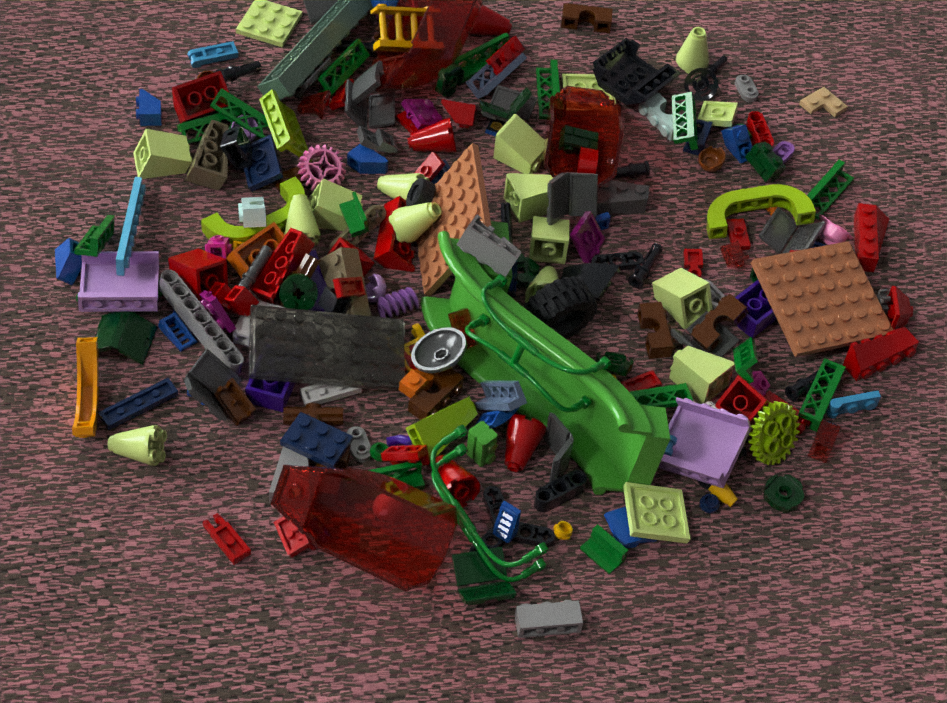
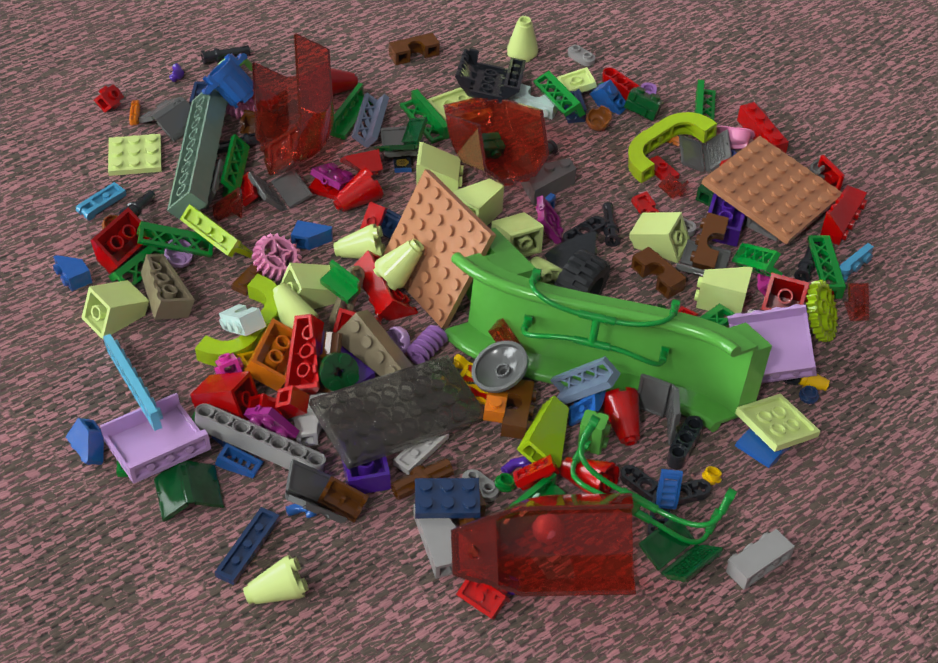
camera: 25 degrees left, 5 degrees down
(87, 388) = (188, 555): light orange arch -> none
(96, 238) = (104, 408): green fence -> none
(227, 539) = (422, 632): red hinge -> none
(235, 143) = (180, 264): black torso -> none
(257, 265) = (281, 378): dark grey pin -> none
(265, 164) = (215, 275): dark blue plate -> none
(331, 303) = (377, 364): black brick -> none
(349, 287) = (386, 345): red plate -> none
(367, 82) = (270, 166): dark grey slope -> none
(377, 141) = (308, 214): dark grey slope -> none
(399, 43) = (275, 124): yellow fence -> none
(420, 192) = (388, 238): black tyre -> none
(449, 79) = (337, 137): dark green plate -> none
(488, 247) = (505, 250): light grey wedge -> none
(505, 55) = (370, 101): red plate -> none
(571, 195) = (520, 187): dark grey piece -> none
(587, 160) = (509, 157): red beam -> none
(604, 550) = (757, 474): green panel -> none
(702, 82) = (546, 62): black dish -> none
(783, 483) = (865, 366): dark green plate -> none
(823, 99) = (645, 41): tan plate -> none

